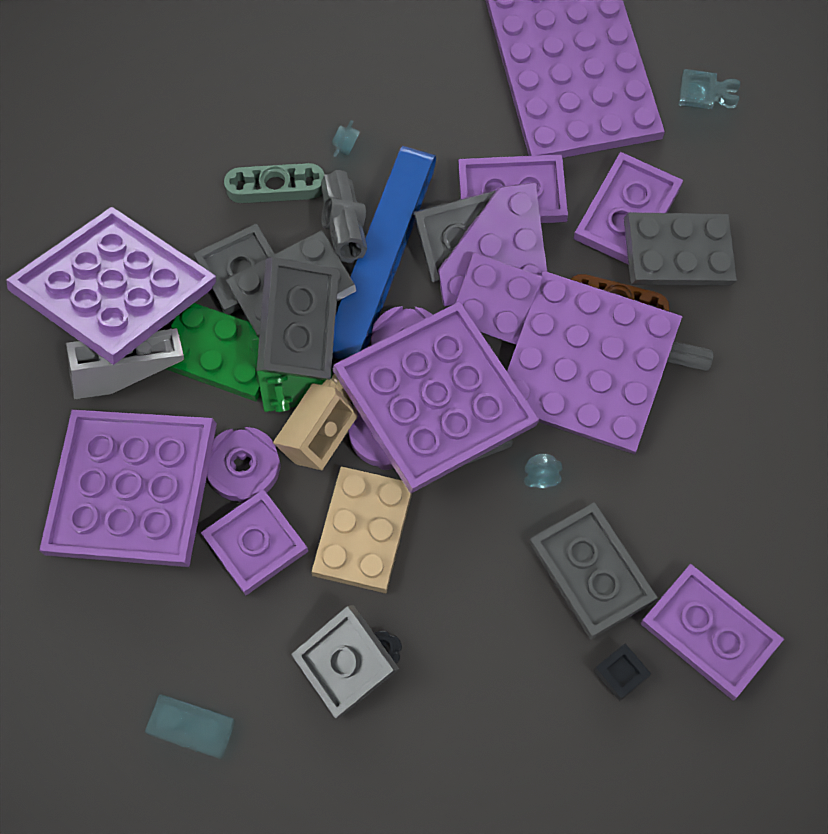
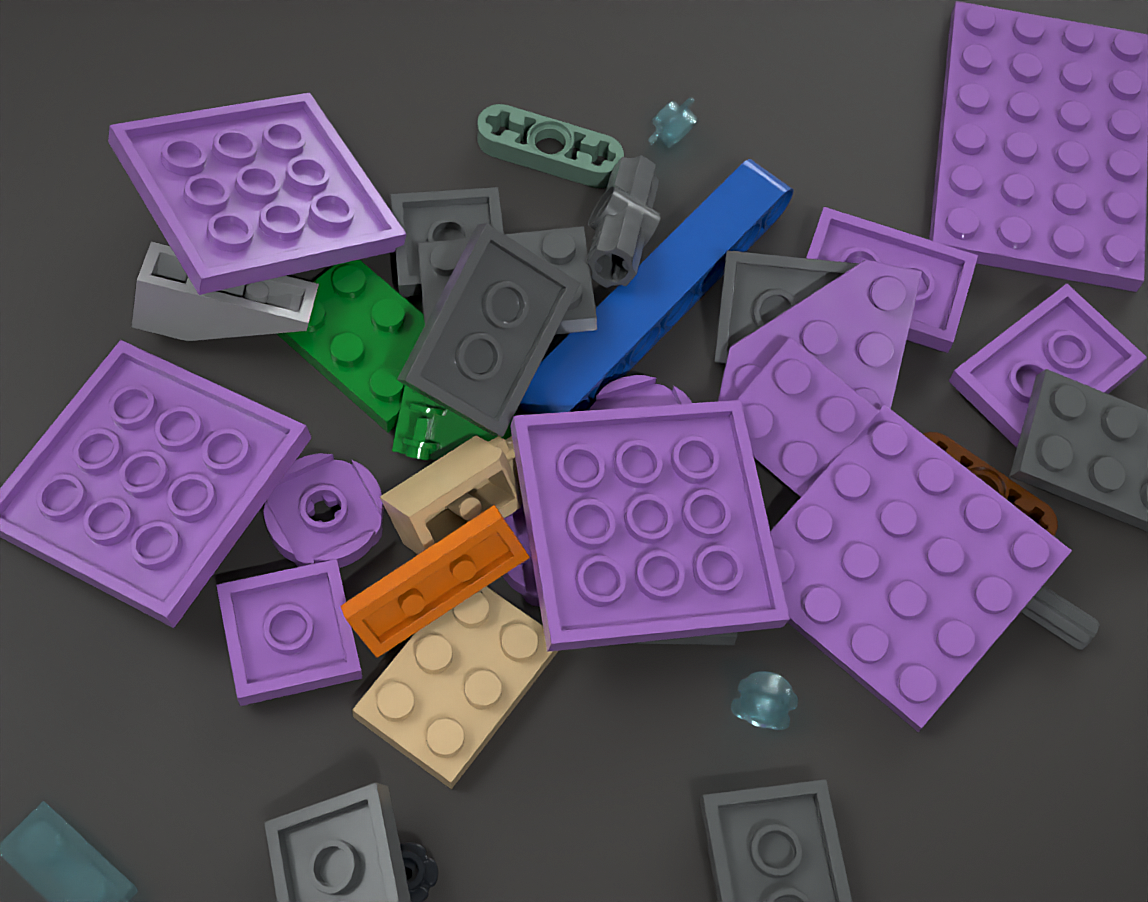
camera: 15 degrees right, 5 degrees down
(328, 479) = (434, 581): none -> orange plate

